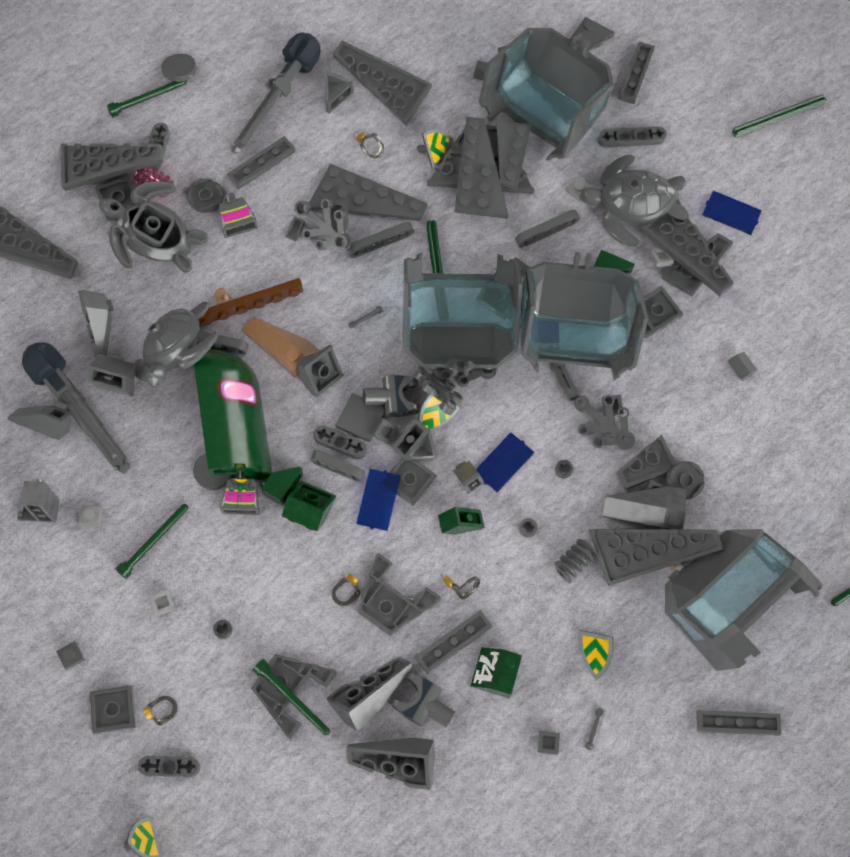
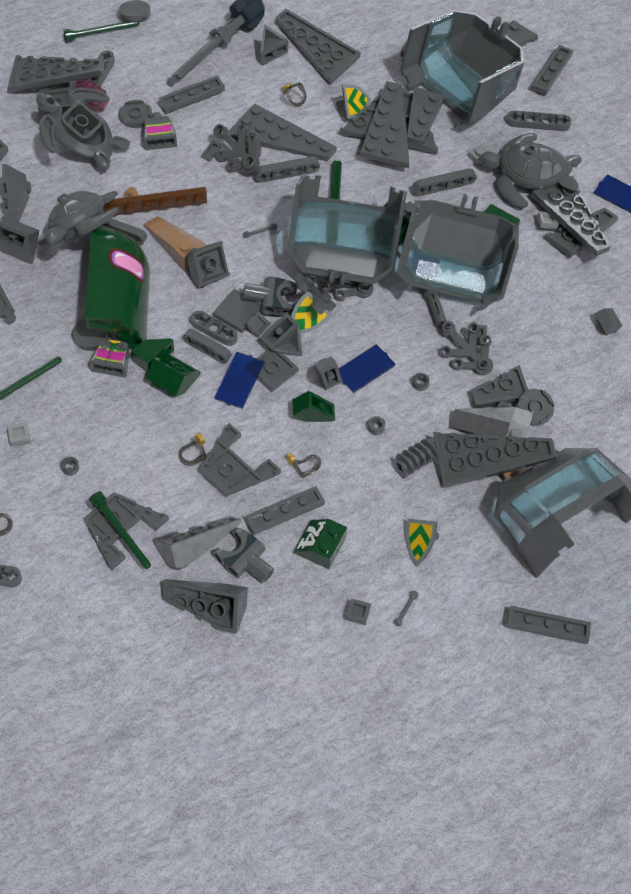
camera: 10 degrees right, 10 degrees down
(660, 310) = (533, 265): dark grey plate -> none

